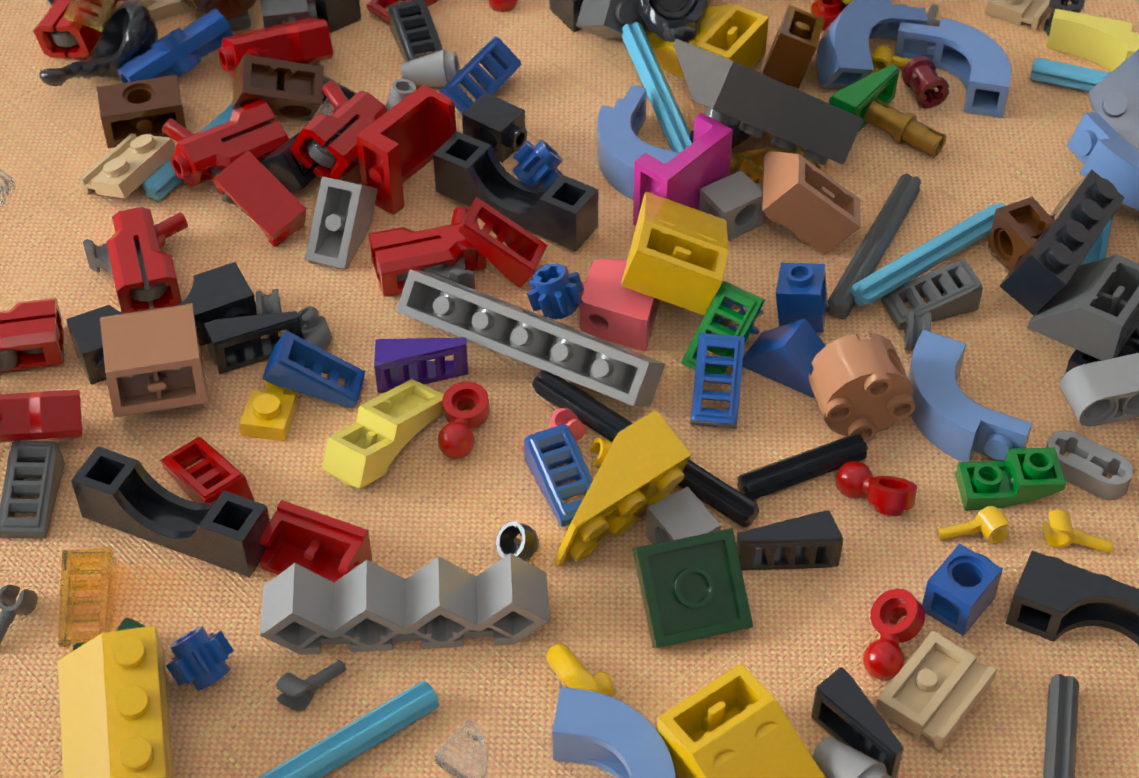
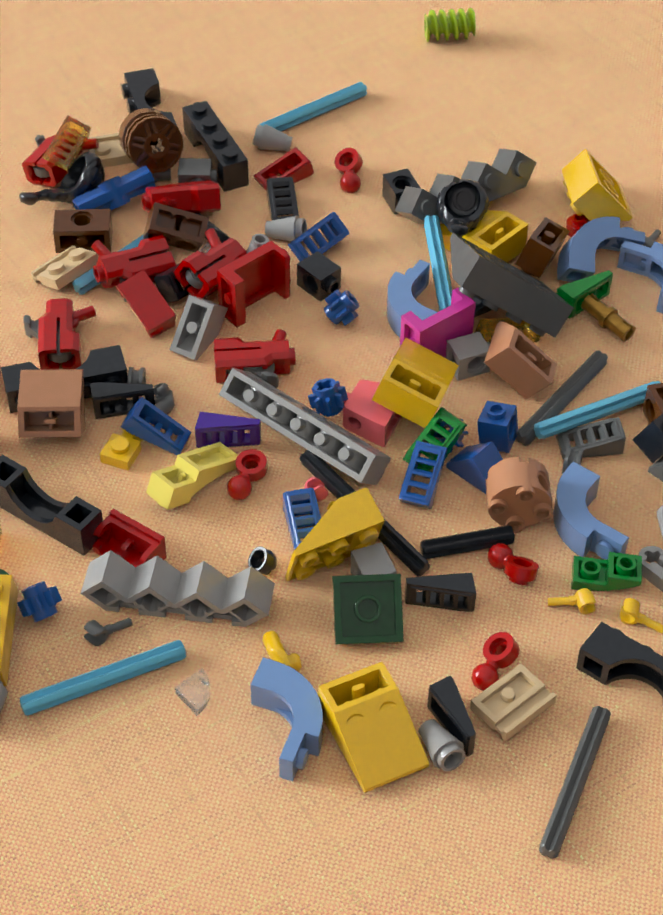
camera: 10 degrees right, 0 degrees up
(207, 478) = (71, 485): red slope -> none
(523, 251) = (313, 357): red slope -> none
(558, 213) = (295, 309): black arch -> none
(884, 57) = (609, 263): yellow hand -> none
(925, 82) = (632, 286): dark red bush -> none
(961, 589) = (549, 639): blue brick -> none

